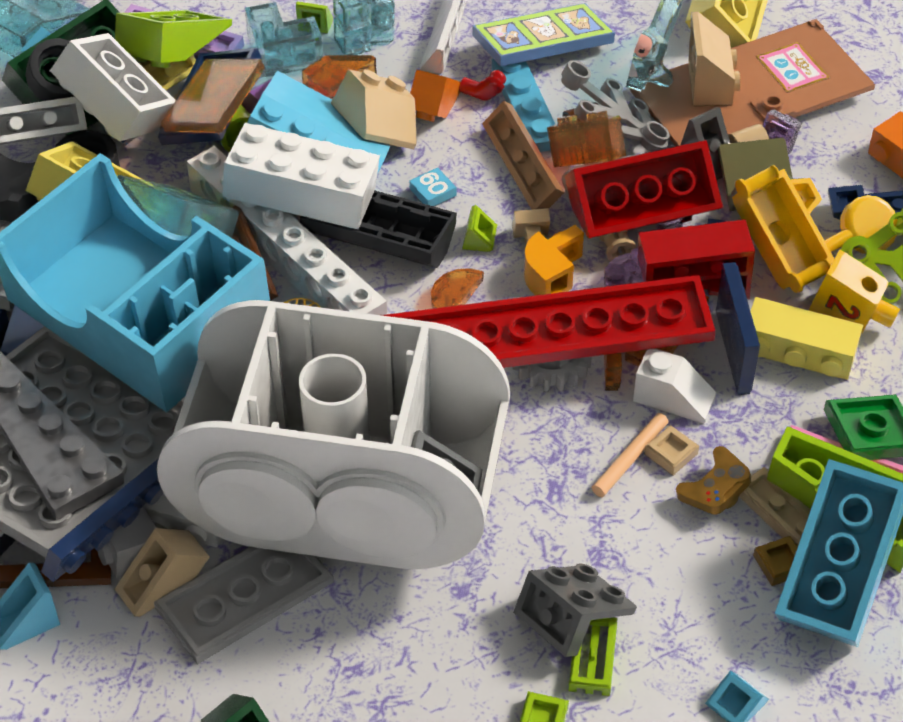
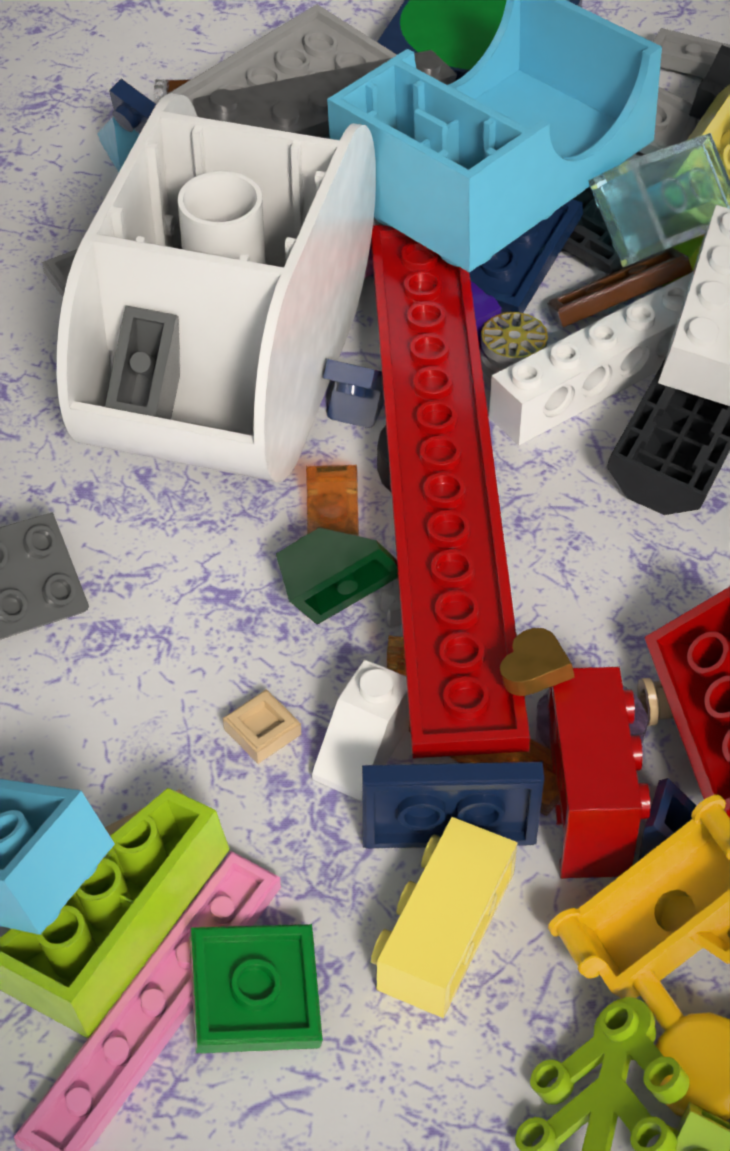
camera: 95 degrees right, 0 degrees up
(455, 287) = (572, 506): clear orange tile -> none
(479, 231) = (694, 540): lime slope -> none
(529, 222) = (686, 594): tan tile -> none
(549, 262) = (614, 602): light orange brick -> none
(549, 406) = (333, 571): none -> dark green slope
(629, 455) = (261, 677): light nougat bar -> none
(648, 266) = (535, 663): none -> pearl gold tile
(719, 487) = (176, 762): pearl gold piece -> none
(854, 293) = (519, 992): yellow torso -> none

